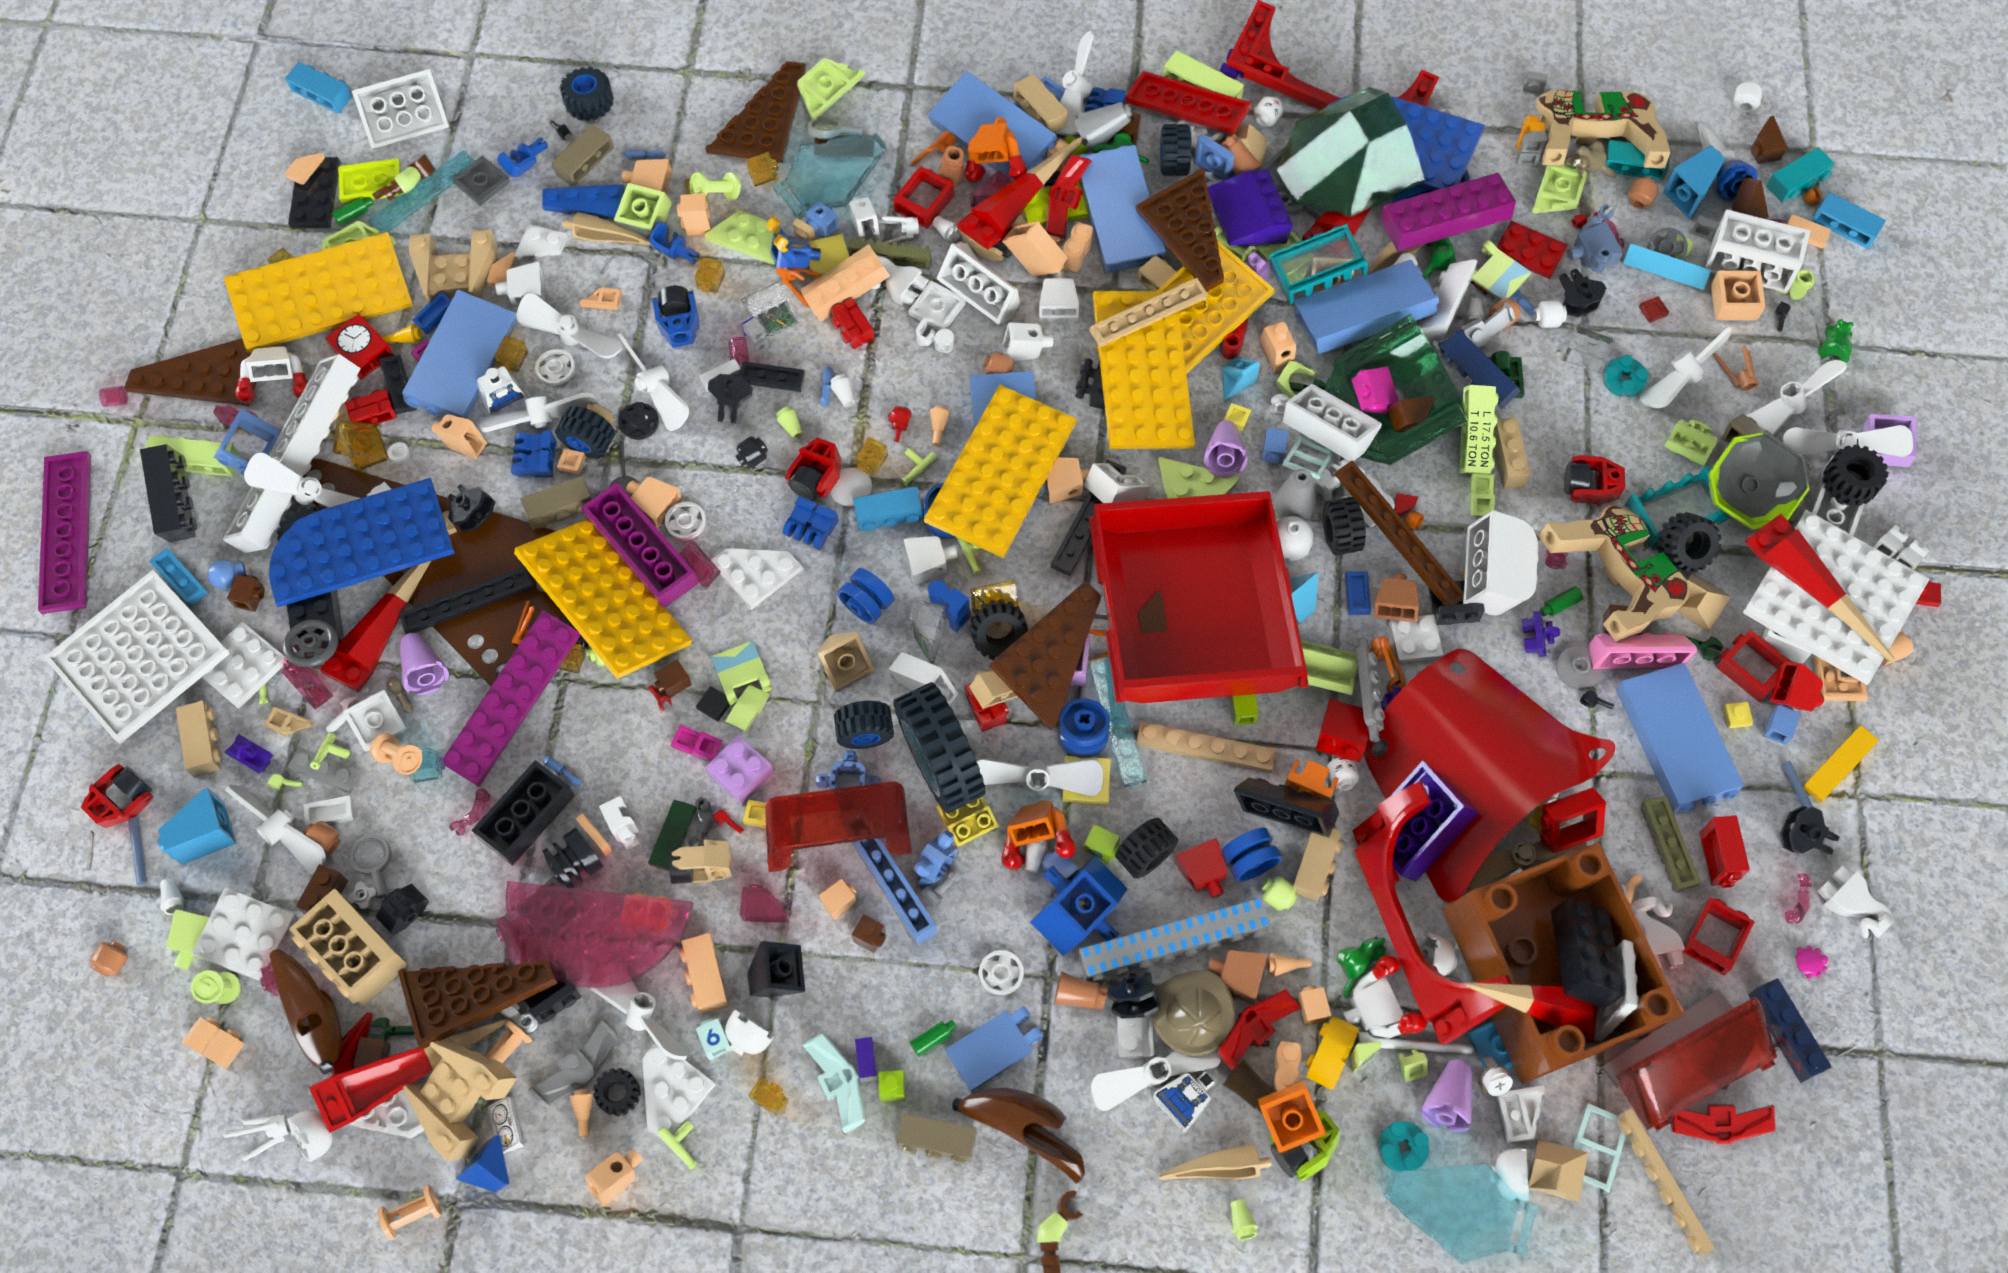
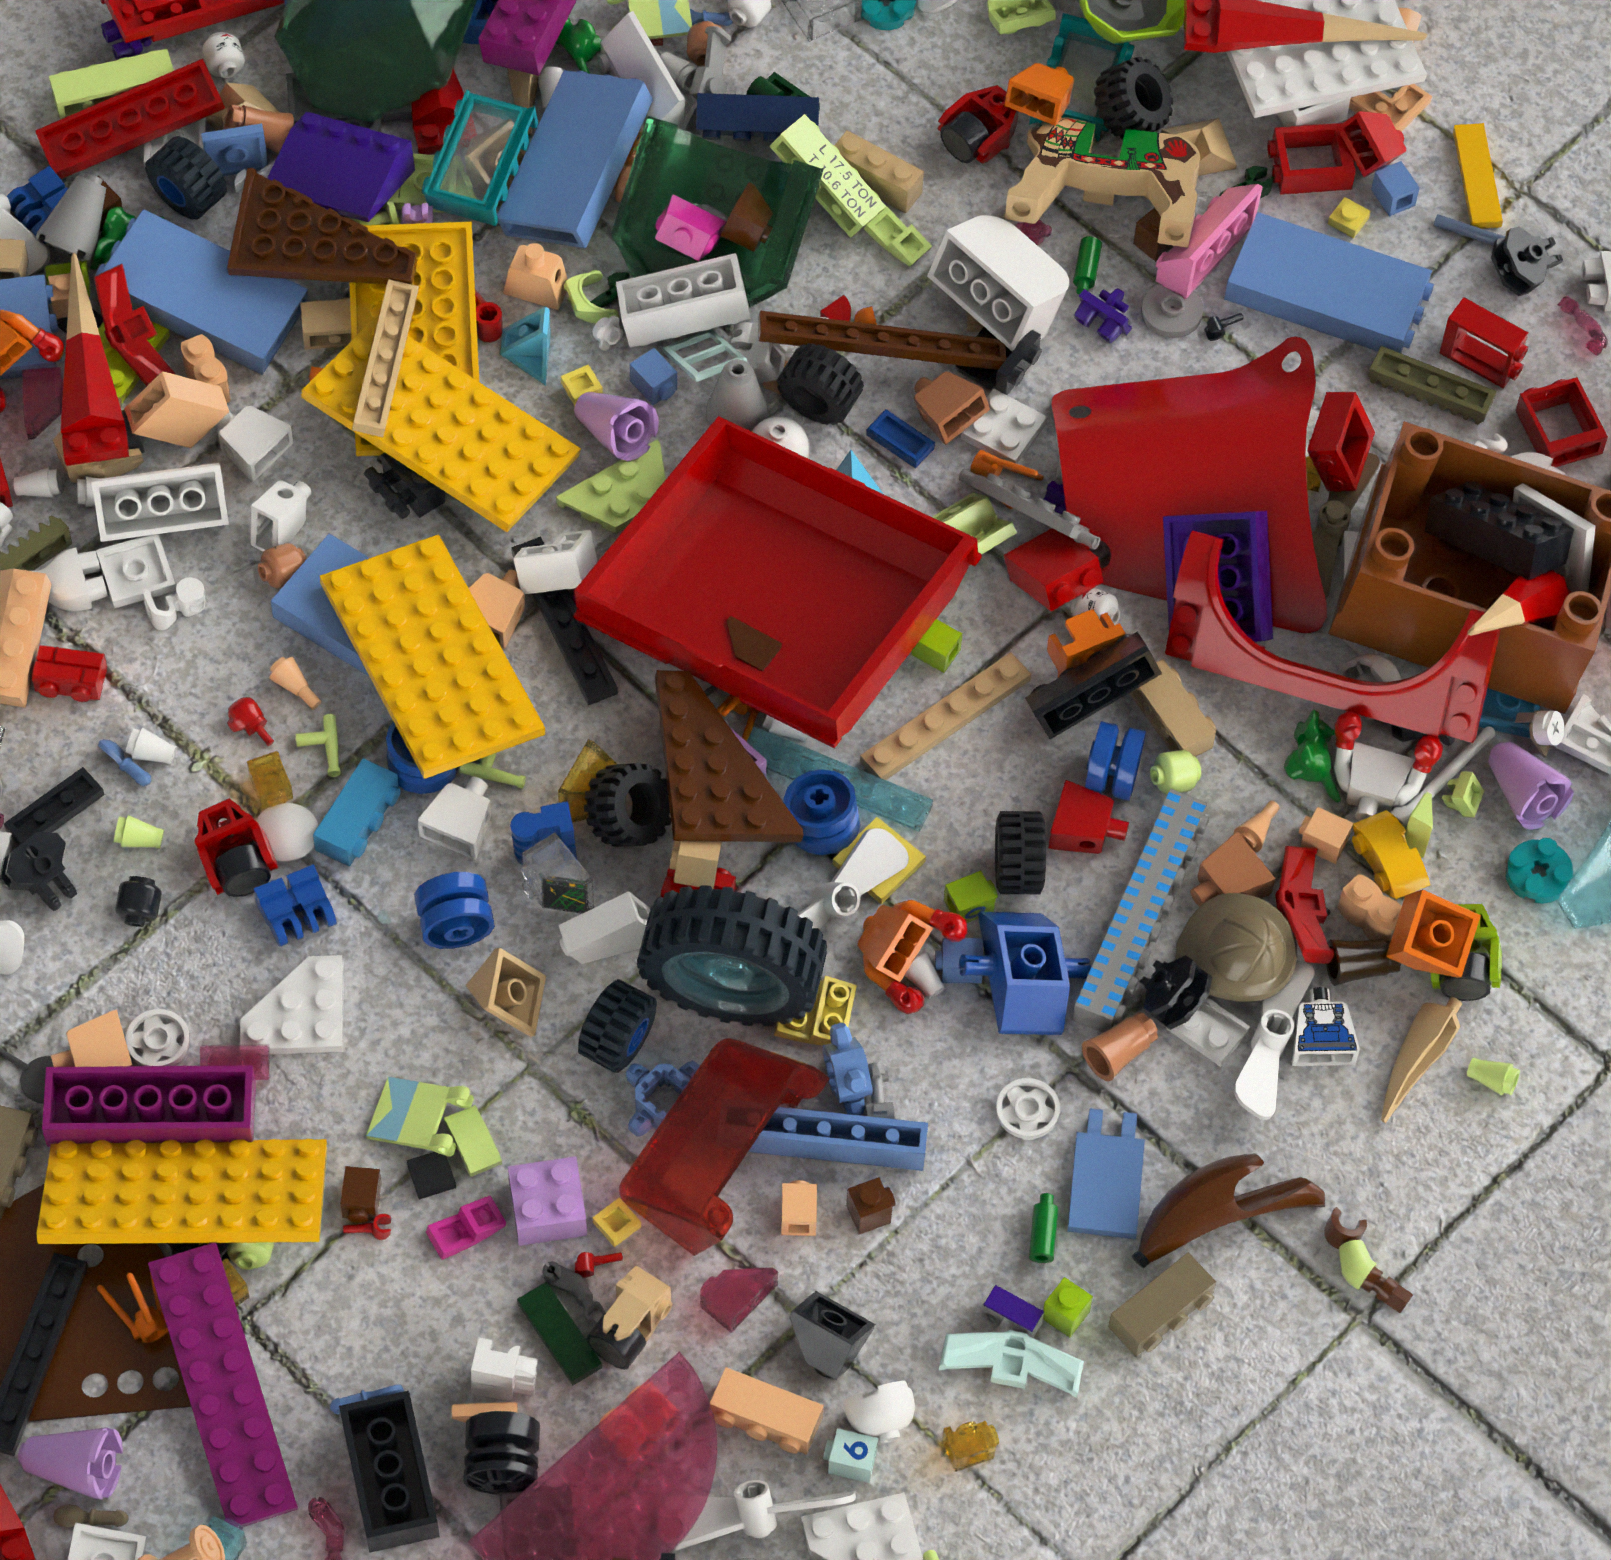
camera: 55 degrees left, 5 degrees down
(1393, 681) = (1034, 486): orange hinge -> none
(1640, 492) = (1040, 92): none -> orange torso

